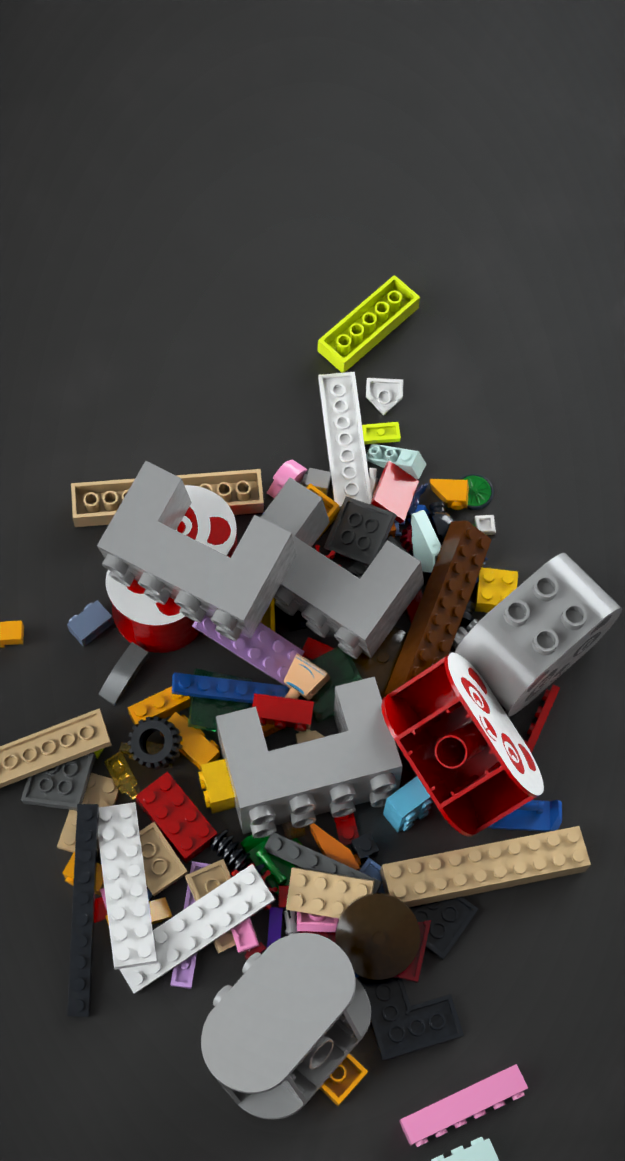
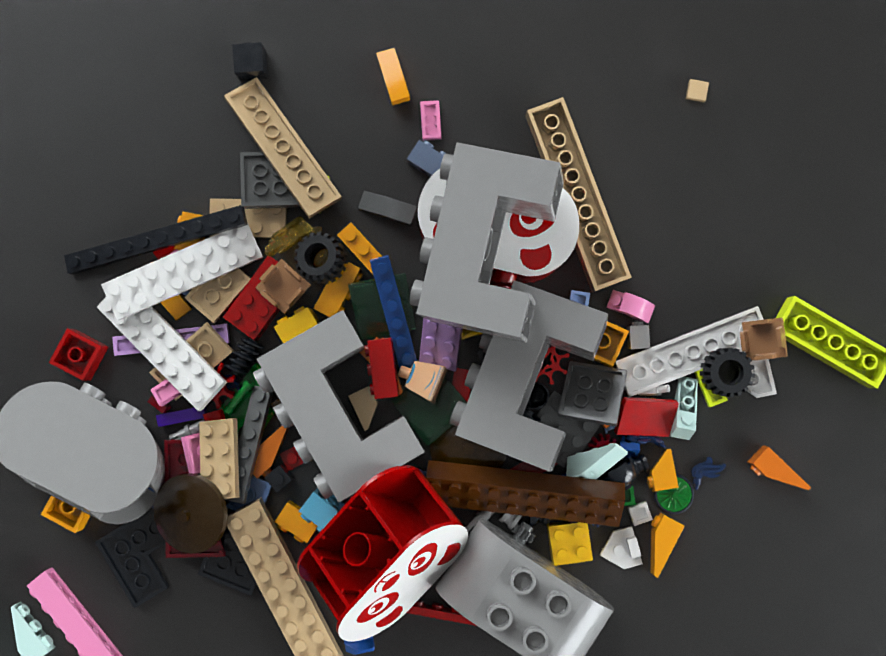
camera: 80 degrees right, 20 degrees up
(50, 612) = (430, 120): none -> bright pink plate
(102, 374) = (697, 90): none -> tan tile
(172, 784) = (282, 286): none -> medium nougat panel
(178, 1023) = (78, 354): none -> red brick
(350, 374) = (764, 339): none -> medium nougat panel
(371, 425) = (742, 367): none -> black tyre
(414, 841) = (291, 521): none -> light orange brick
(458, 458) = (705, 469): none -> dark blue piece
(468, 402) = (769, 464): none -> orange slope
(514, 547) = (622, 548): none -> white plate
(515, 510) = (663, 539): none -> light orange slope

